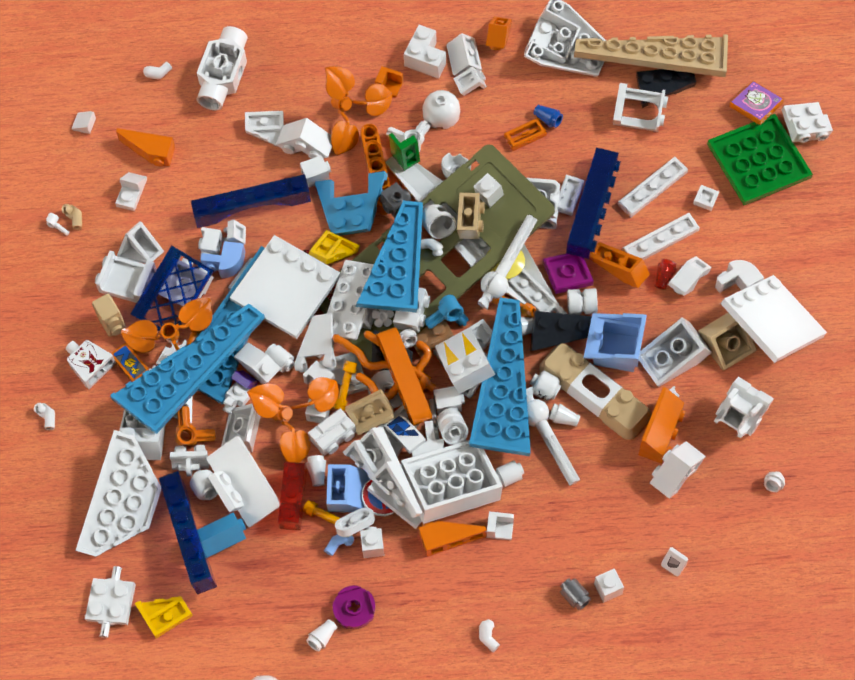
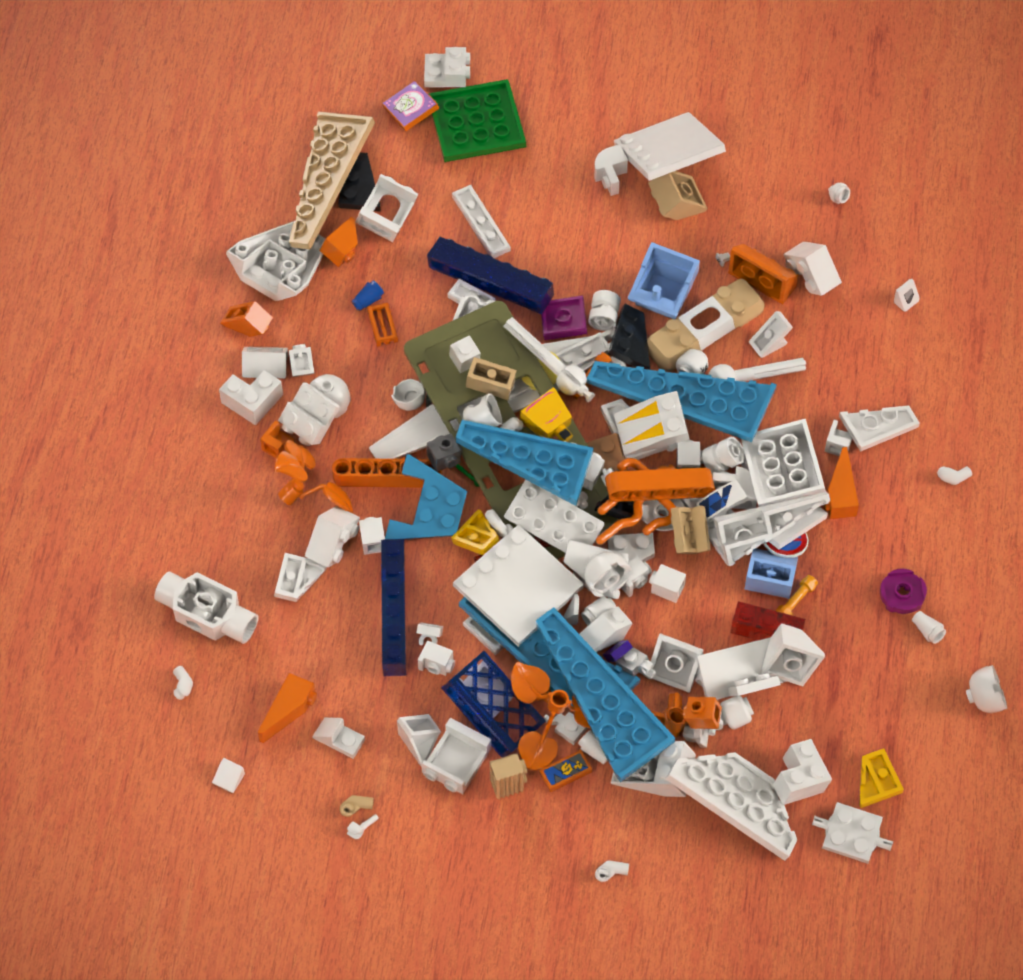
camera: 80 degrees left, 5 degrees down
(89, 361) = (556, 812): white torso -> none
(151, 552) = (805, 773): none -> white brick
(186, 451) = (702, 712): none -> orange brick
(187, 534) = (830, 723): clear blue arch -> none
(222, 534) = (801, 708): dark azure brick -> none
(228, 262) = (464, 644): light blue brick -> none
(260, 515) = (791, 655): none -> white slope
(267, 400) = (668, 611): orange plant -> none
(278, 338) = (572, 611): none -> white slope
(305, 347) = (606, 573): none -> white cylinder
(316, 466) = (735, 594): white cone -> none
(332, 432) = (701, 575): white brick -> none
(335, 541) = (824, 593): light blue arm -> none
(339, 261) = (496, 522): none -> white arm
(349, 368) = (633, 540): light orange bar -> none
(354, 522) = (815, 568): white plate -> none
(372, 542) = (836, 558): white brick -> none
(406, 152) = (382, 437): green panel -> none
(414, 96) = (308, 415): none -> white plate
(419, 133) = (360, 432): white axle -> none
(449, 273) = (548, 416): none -> yellow torso
(449, 310) = (590, 429): dark azure axle -> none
(510, 473) = (782, 414): white brick -> none
(522, 556) = (878, 426): none -> white wing
(563, 415) = (729, 355): white cone -> none
(575, 593) = (925, 387): flat silver brick -> none
(593, 82) = (341, 243): none -> orange slope
(594, 447) = (771, 335): none -> white slope
(609, 585) = (923, 355): white brick -> none
(620, 264) = (571, 265): orange slope -> none
(663, 237) = (544, 229): white tile -> none
(665, 272) = (587, 231): clear red cone -> none
(673, 352) = (682, 234): white slope -> none
(688, 276) = (598, 209): white slope -> none
(706, 197) = (509, 176): white plate -> none
(743, 407) = (762, 194): white piece -> none

